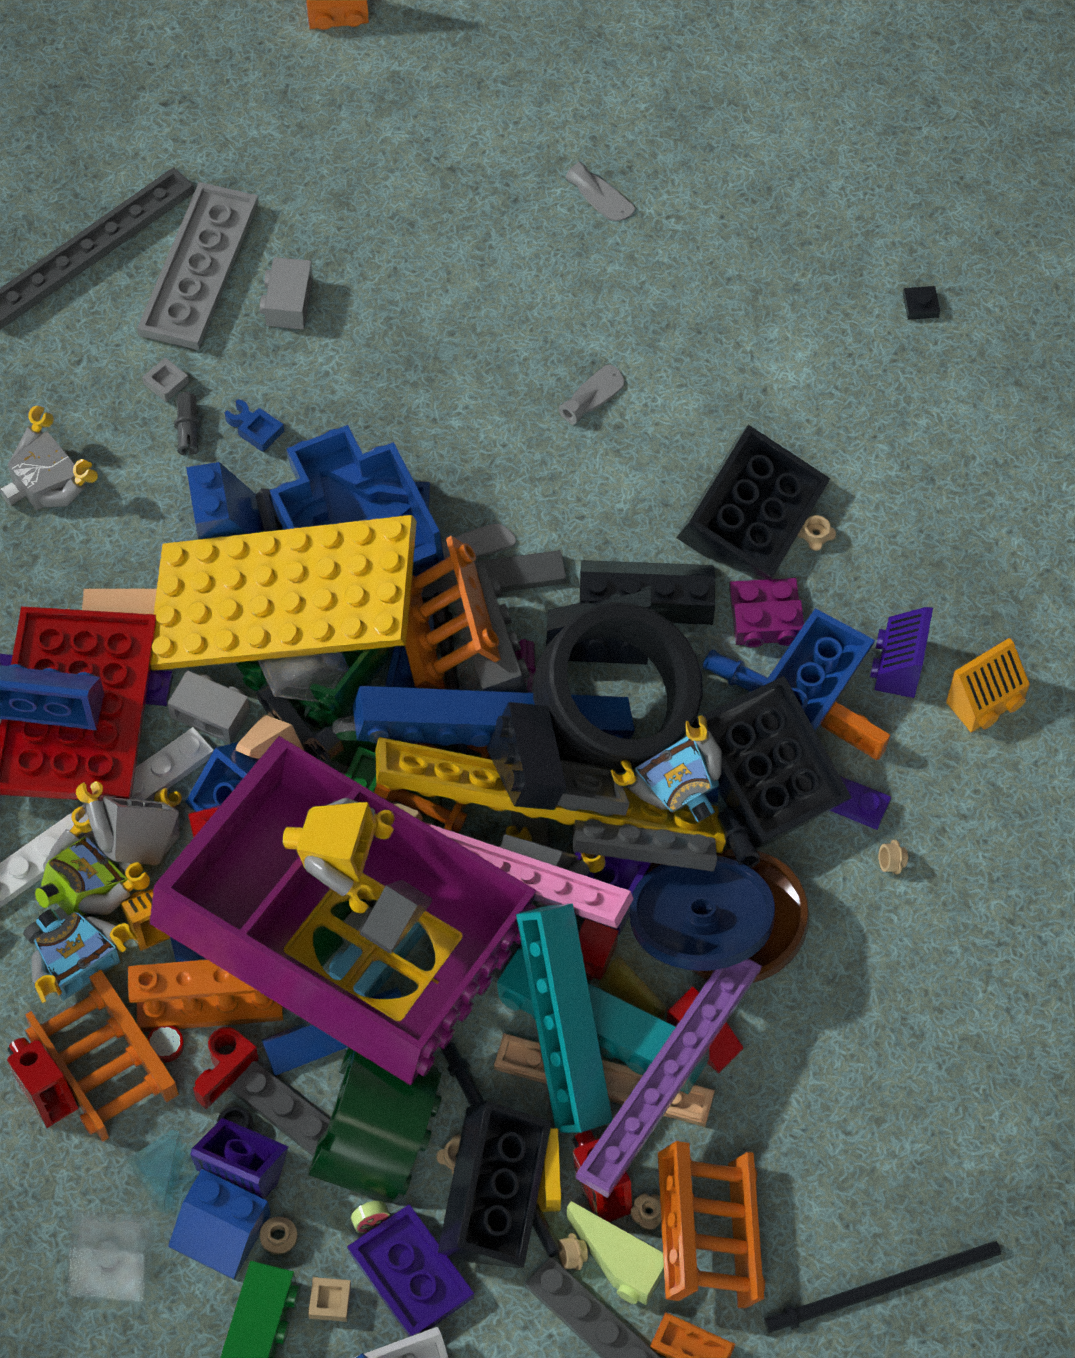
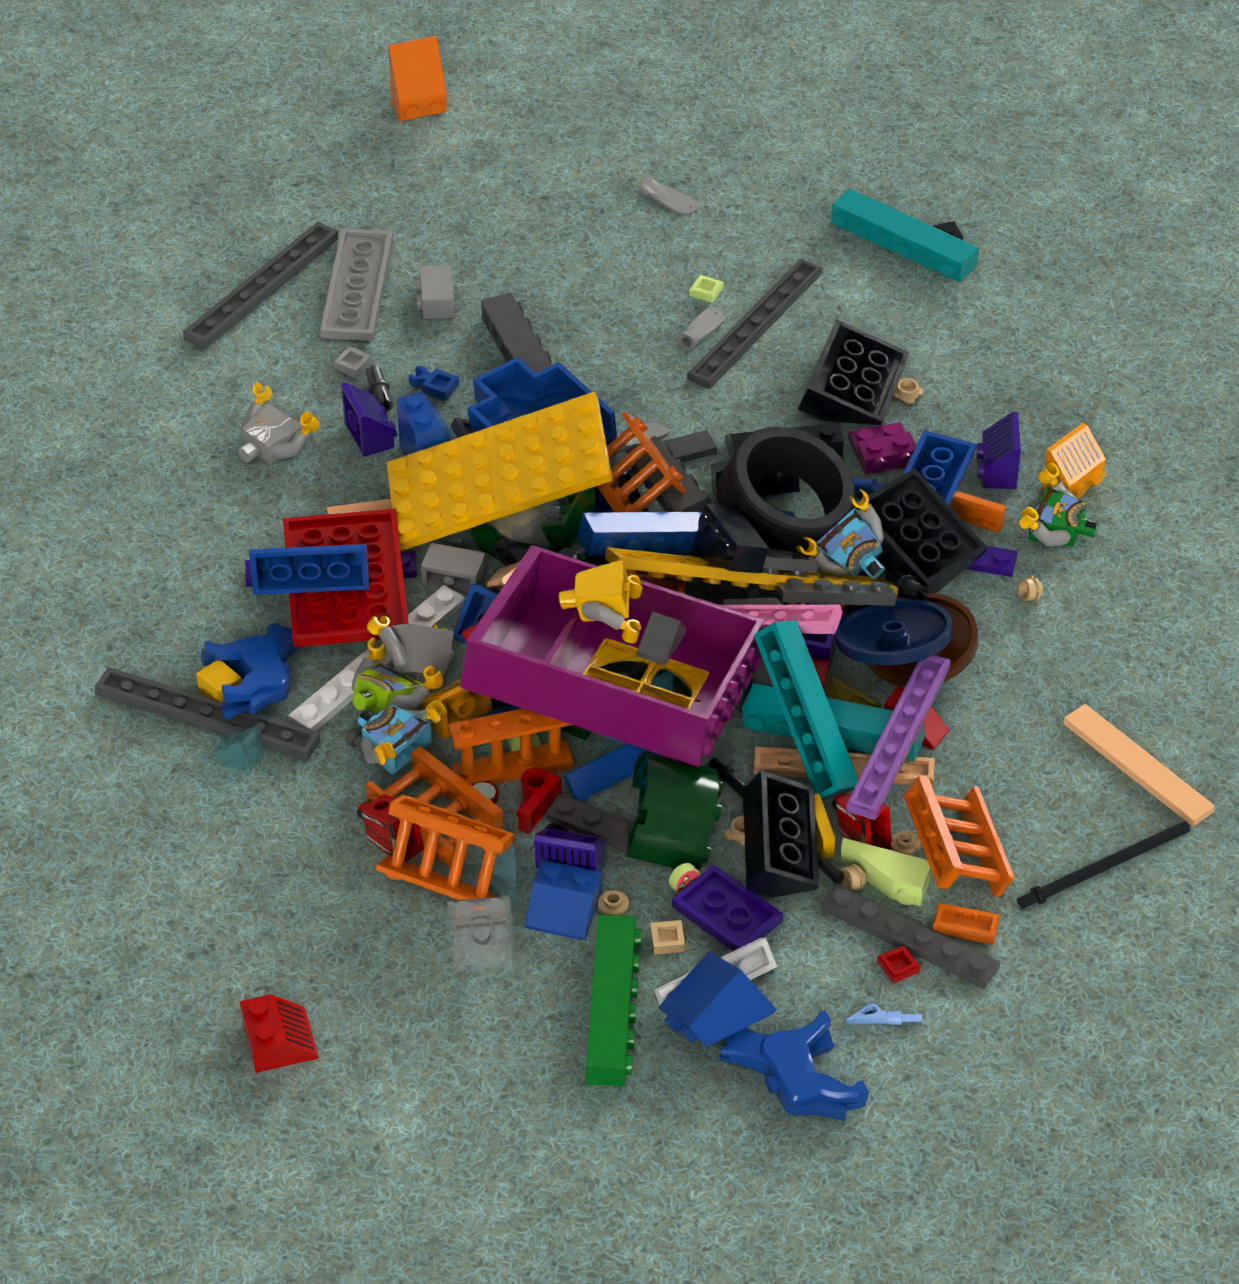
camera: 10 degrees left, 15 degrees down
(102, 1120) = (437, 822): none -> orange fence
(159, 473) = (366, 421): none -> dark purple slope
(365, 383) = (513, 332): none -> dark grey brick
(611, 337) = (706, 288): none -> yellowish green tile
(657, 399) = (754, 324): none -> dark grey tile
(868, 299) = (904, 235): none -> teal brick
(952, 754) = (1058, 514): none -> torso
(962, 1145) = (1139, 765): none -> light nougat tile

